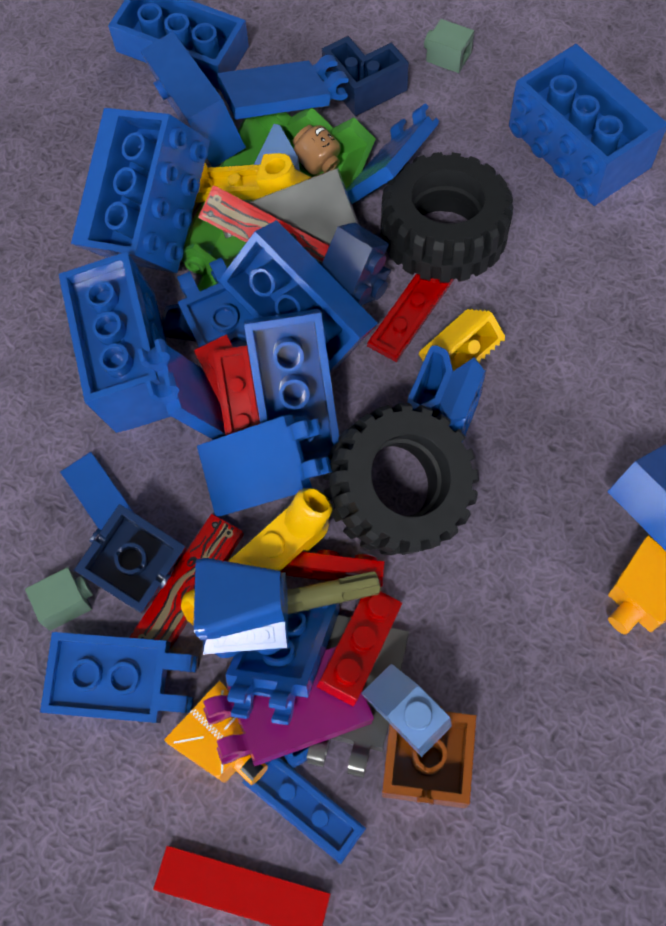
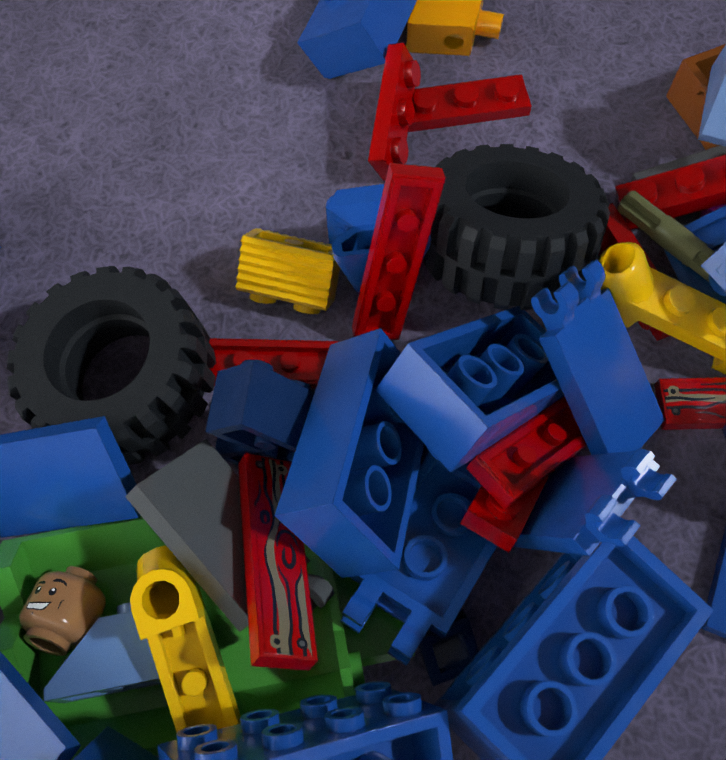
camera: 125 degrees left, 0 degrees up
(410, 375) = (397, 247): none -> red tile
(554, 556) = (470, 102): none -> red plate
(562, 480) = (394, 109): none -> red plate

